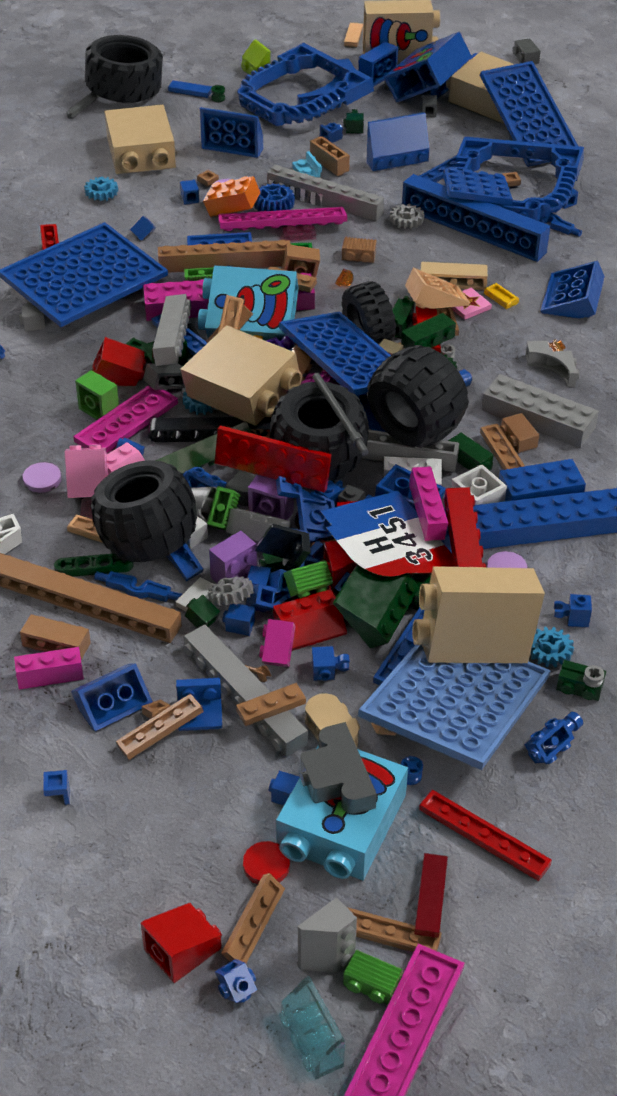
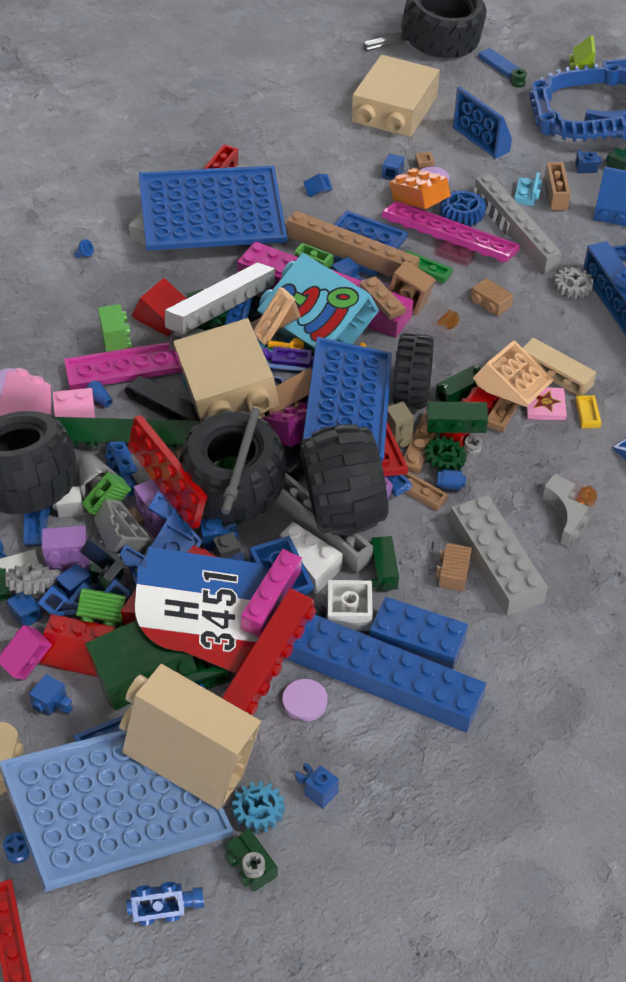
camera: 35 degrees right, 5 degrees up
(101, 188) = (319, 130): dark azure gear -> none
(501, 447) = (422, 574): medium nougat plate -> none

